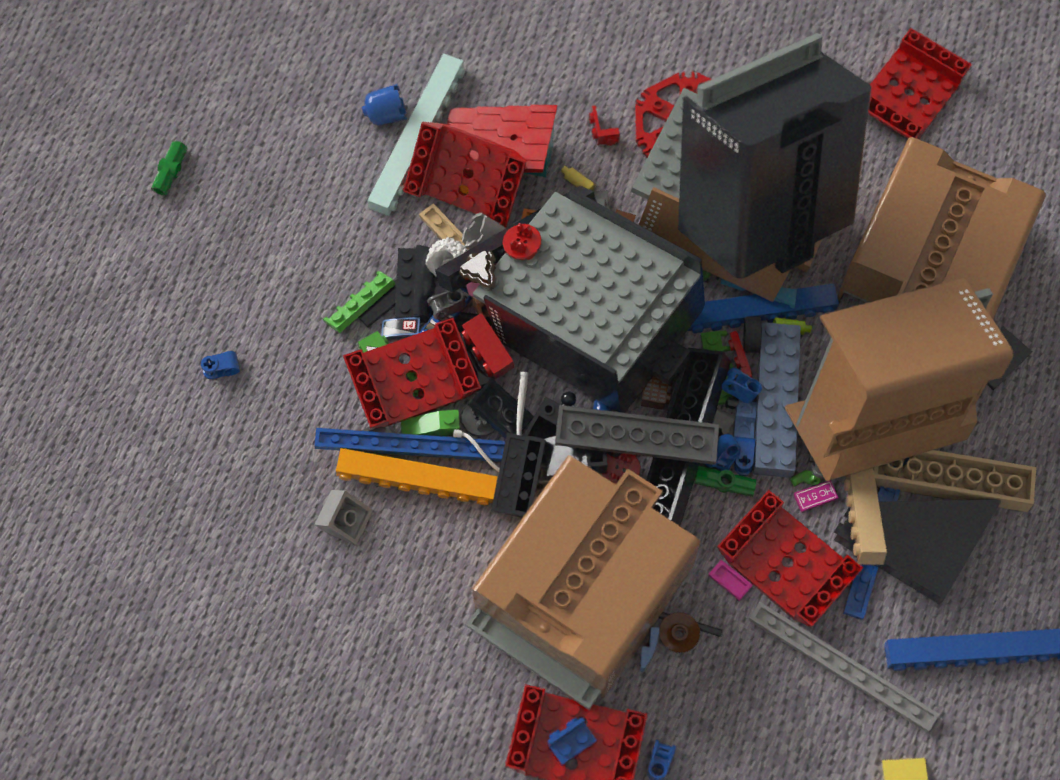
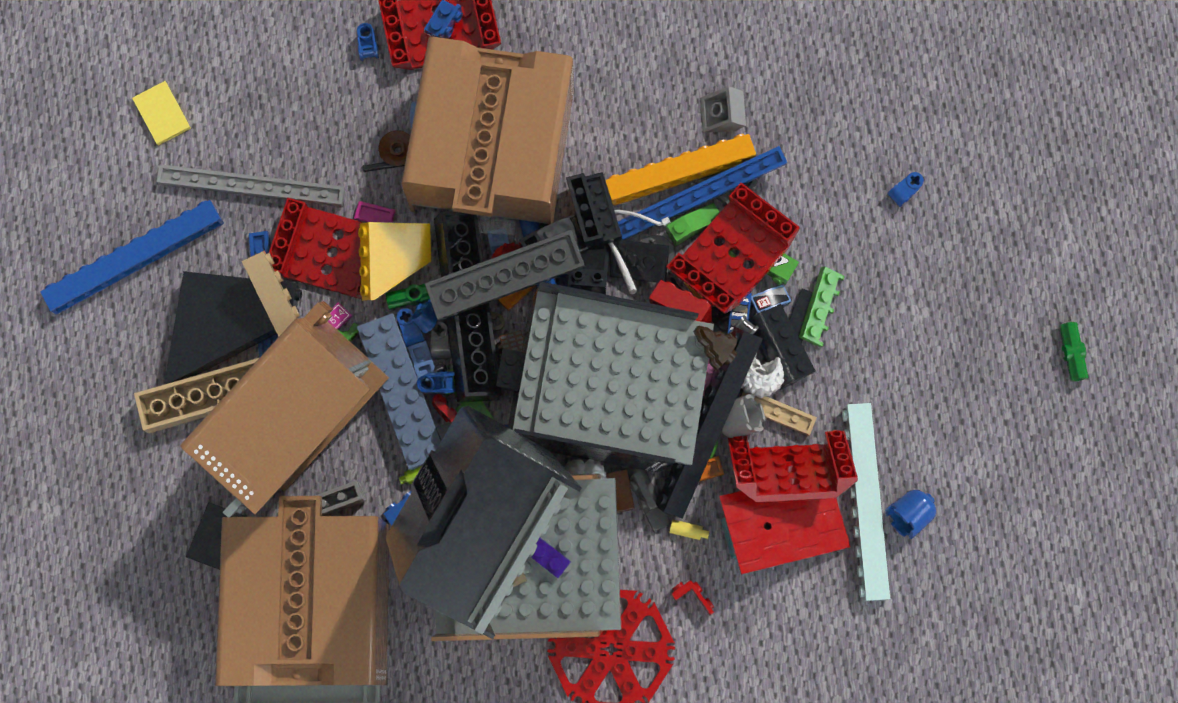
camera: 155 degrees right, 10 degrees up
(522, 250) = (695, 399): red plate -> none
(735, 516) = (391, 254): none -> yellow slope

